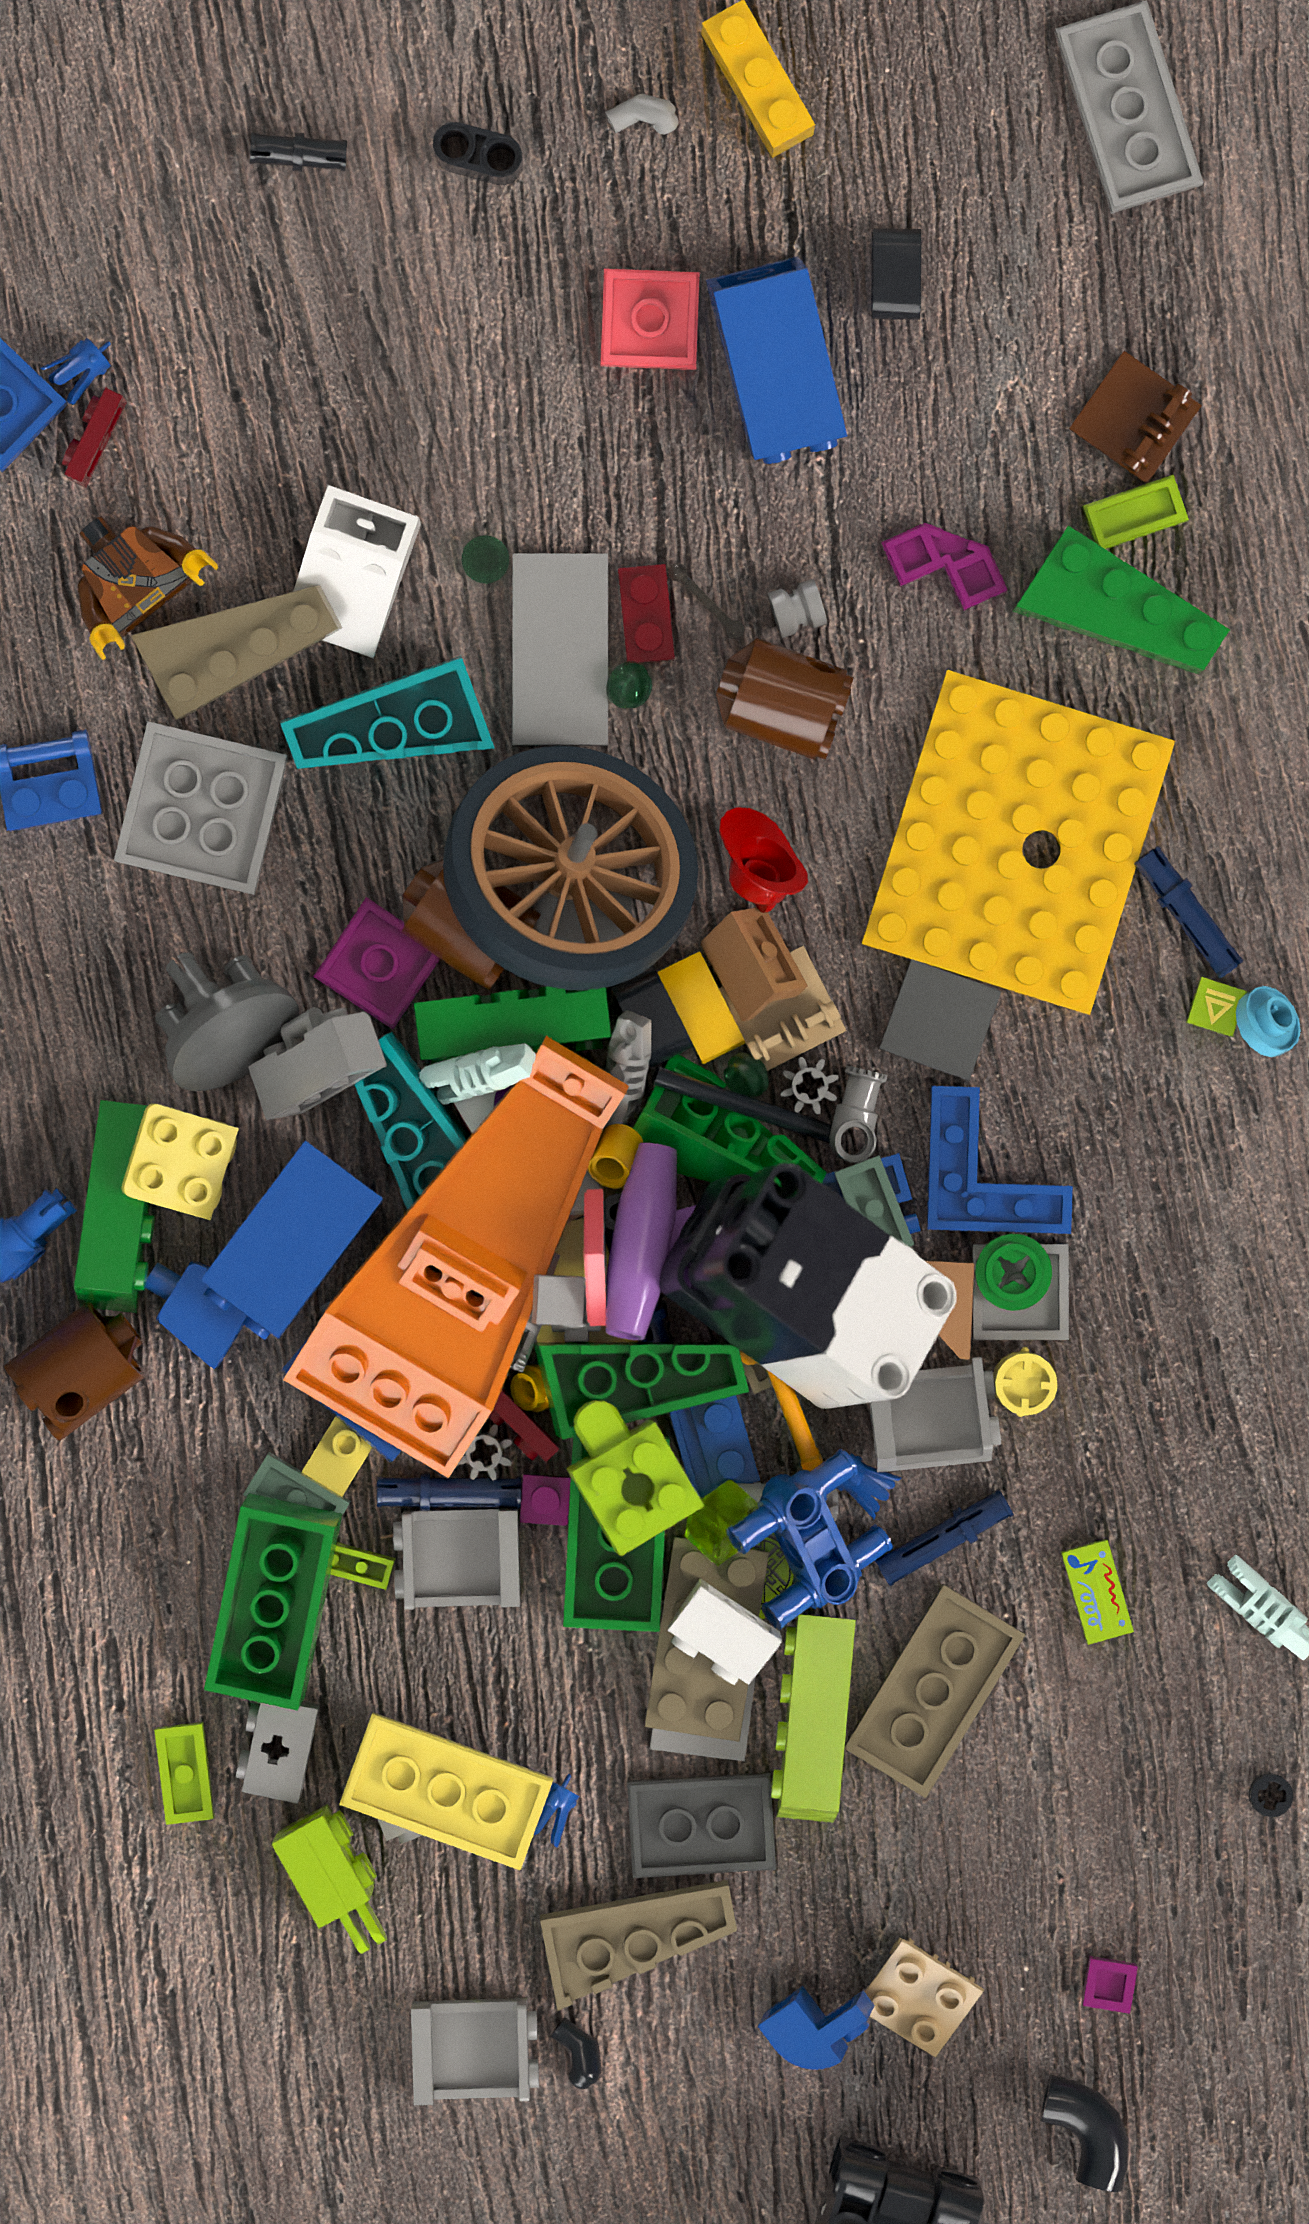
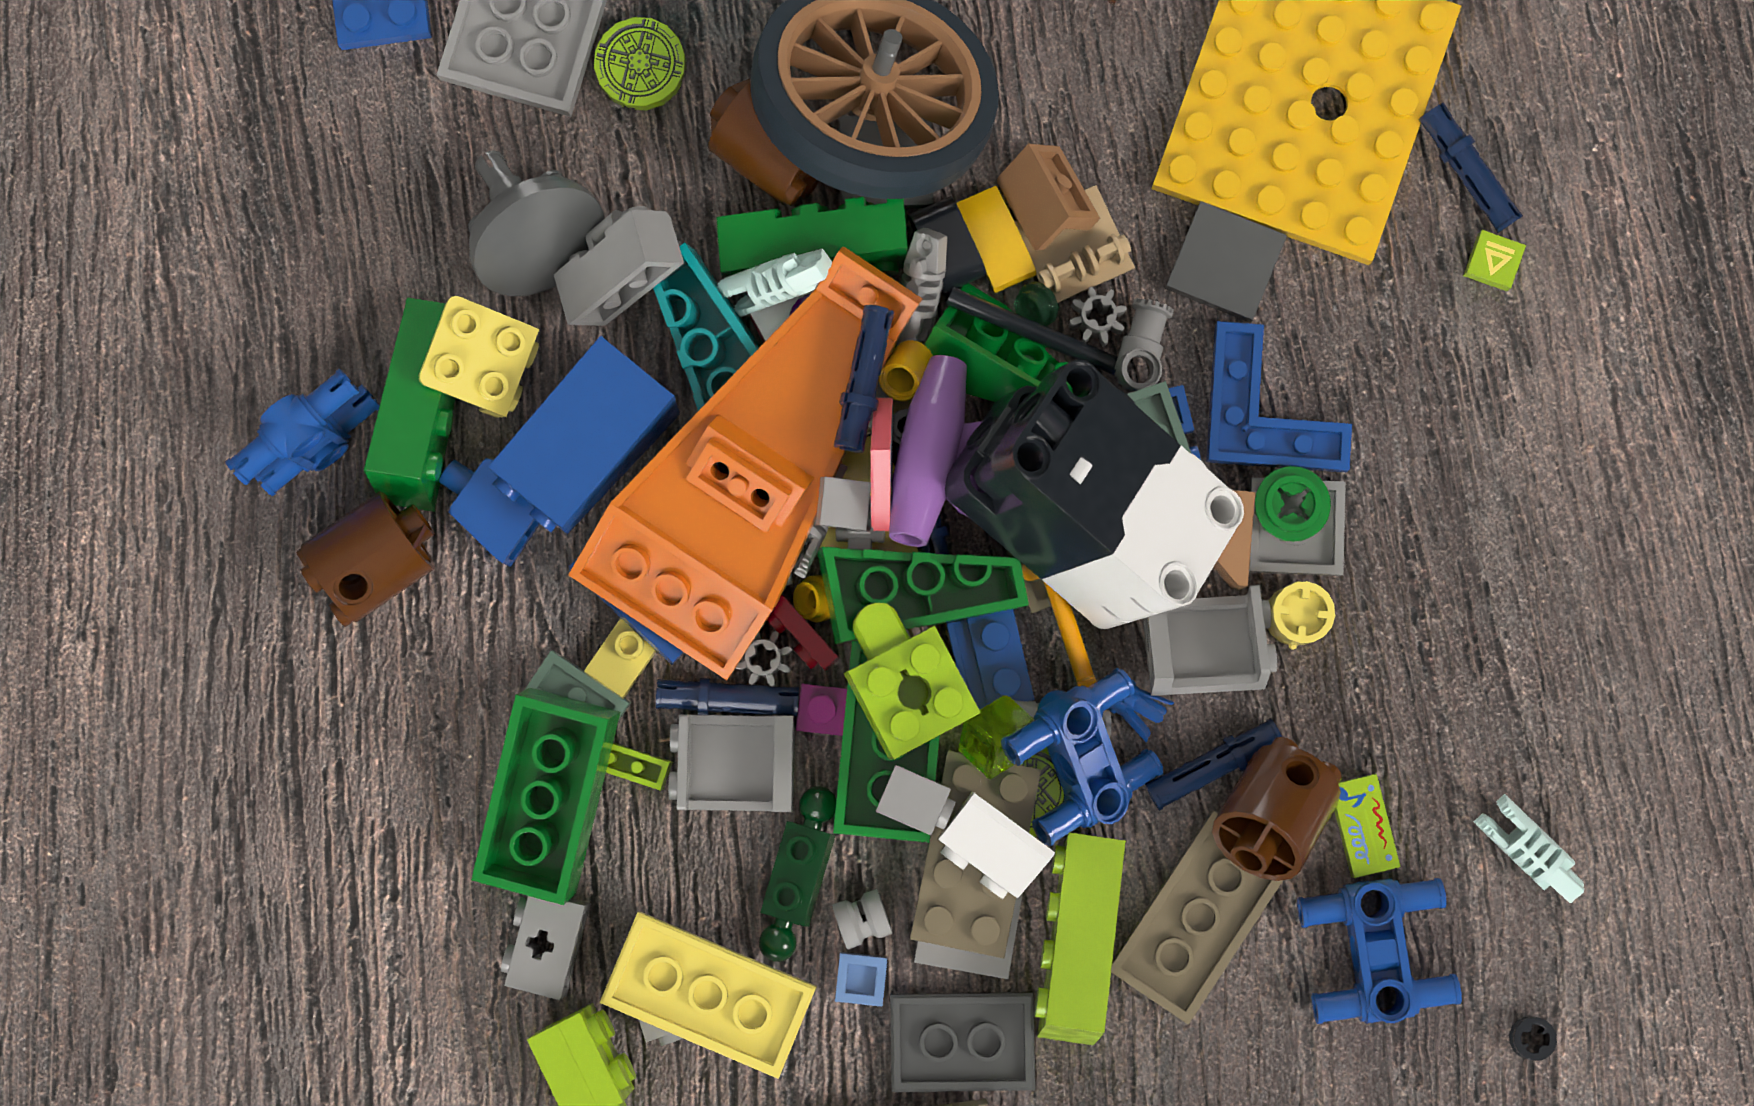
camera: 10 degrees right, 5 degrees down
(184, 1773) = (451, 965): lime plate -> none
(323, 835) = (640, 63): none -> lime tile
(377, 964) = (687, 185): magenta tile -> none
(528, 1666) = (797, 874): none -> dark green plate
(563, 1800) = (819, 1006): blue piece -> none
(573, 1174) = (862, 386): none -> dark blue pin
(585, 1713) = (851, 922): none -> light grey wheel
(597, 1768) = (861, 979): none -> medium blue plate
(643, 1595) = (916, 801): none -> light grey brick
(761, 858) = (1058, 100): red piece -> none
(1004, 1584) = (1277, 810): none -> reddish brown cylinder
(1113, 1716) = (1379, 951): none -> blue piece
(1268, 1021) = (1546, 273): medium azure plate -> none

